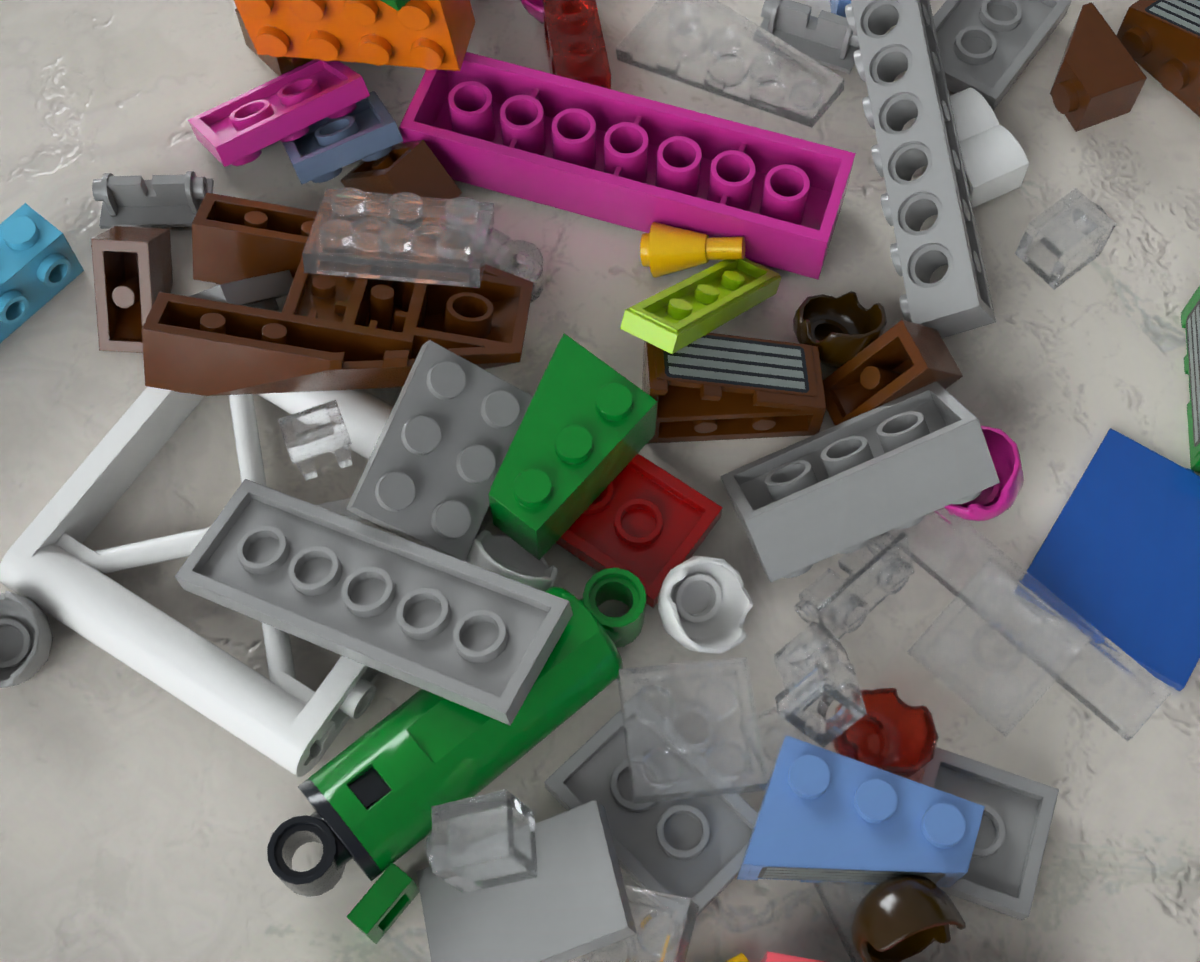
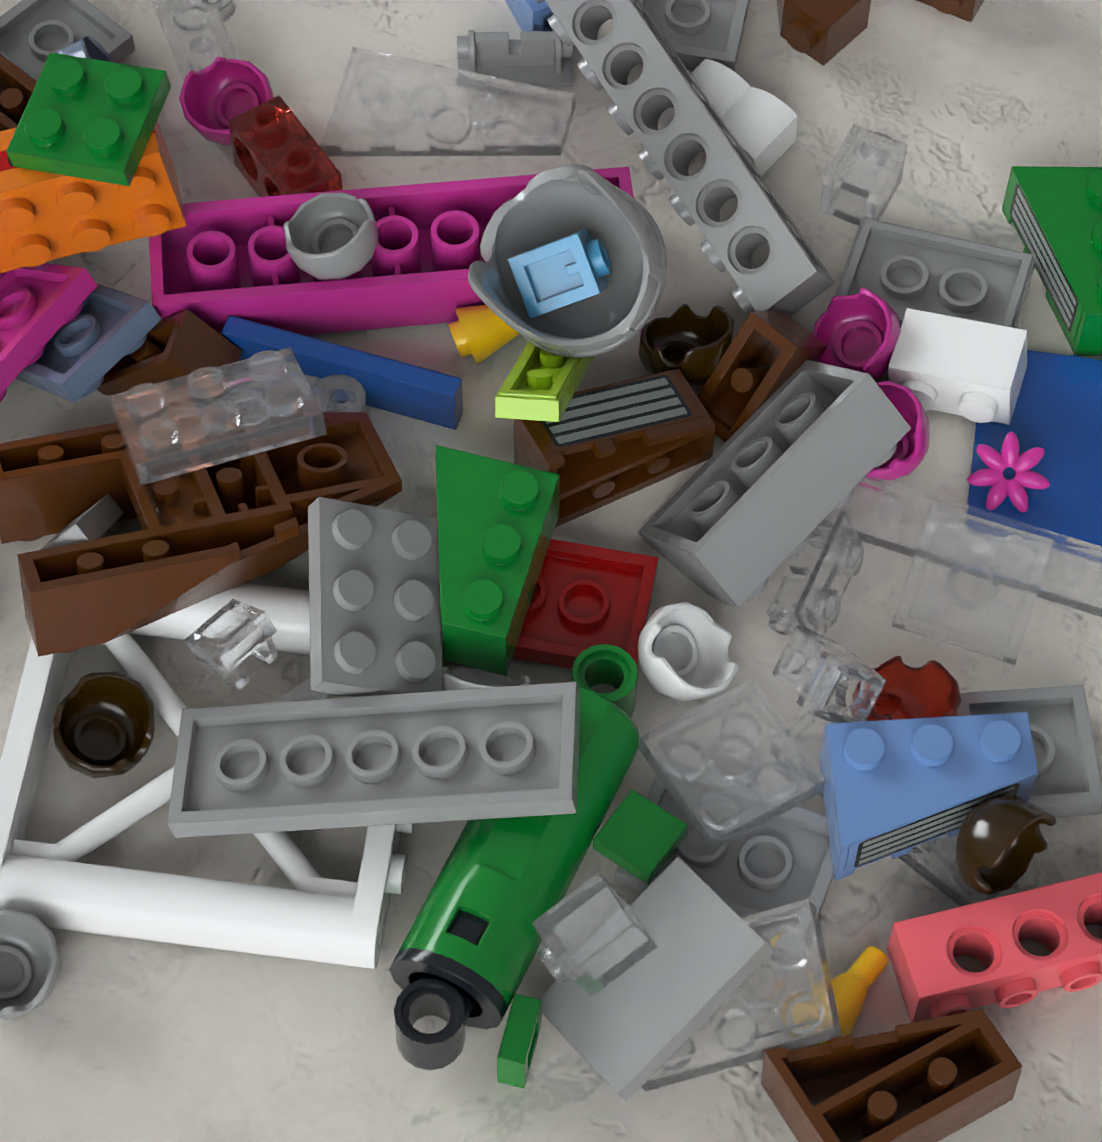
camera: 25 degrees left, 5 degrees down
(188, 465) = (104, 724): none -> dark brown hair
(562, 258) = (387, 382): none -> blue tile
(566, 120) = (332, 235): none -> light grey hair
(578, 761) = (640, 836): none -> green tile
(742, 221) = (561, 272): none -> dark azure bracket
(750, 217) = (551, 209): none -> light grey piece
(996, 378) = (858, 332): none -> dark pink hair
(1076, 440) = (960, 365): none -> white brick
(1078, 569) = (1021, 478): none -> dark pink plant
(1086, 361) = (937, 273): none -> light grey tile

